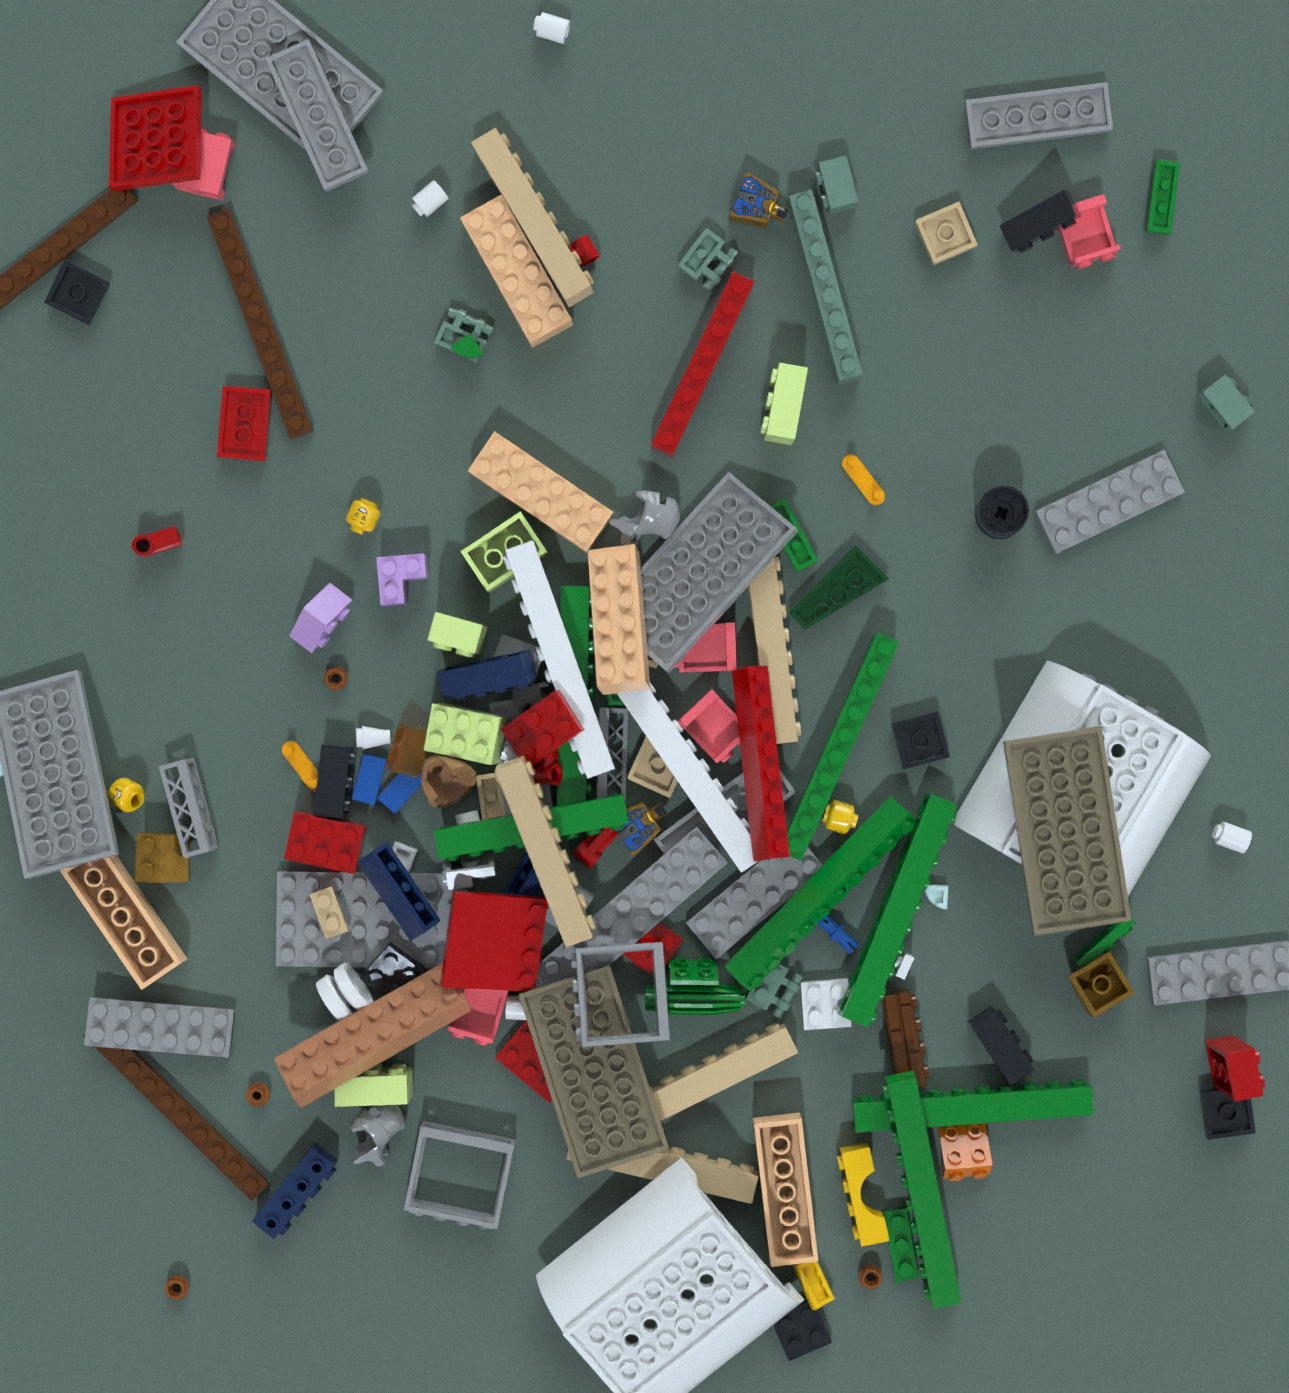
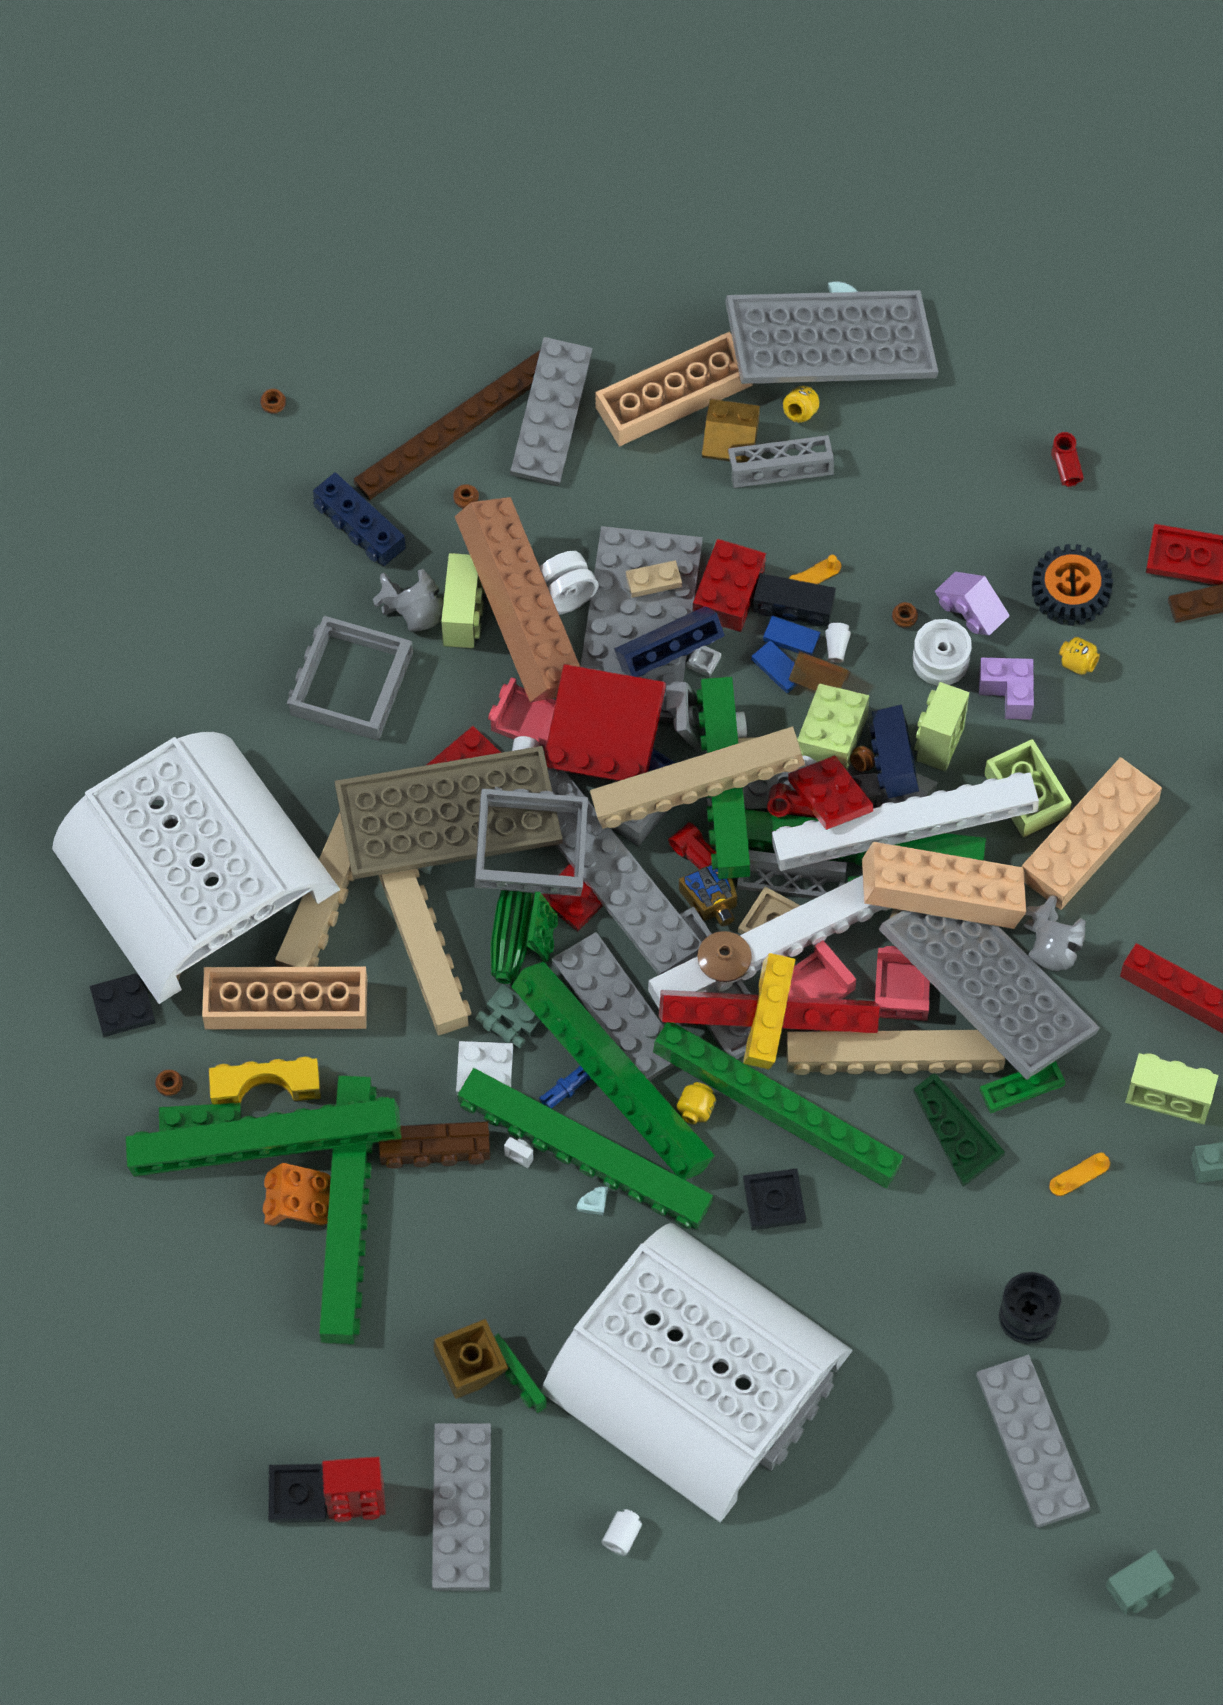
camera: 100 degrees right, 25 degrees down
(291, 551) = (1089, 578): none -> wheel
(368, 628) = (942, 652): none -> white wheel
(391, 970) = (585, 631): black plate -> none
(446, 780) = (782, 703): medium nougat hair -> none
(495, 703) = (862, 759): none -> dark orange plate
(708, 795) = (722, 967): none -> medium nougat dish
(758, 761) = (770, 1011): none -> yellow arch
(813, 1284) = (173, 1020): yellow plate -> none
(1002, 1044) = (412, 1248): black brick -> none
(1067, 830) = (658, 1310): dark tan plate -> none

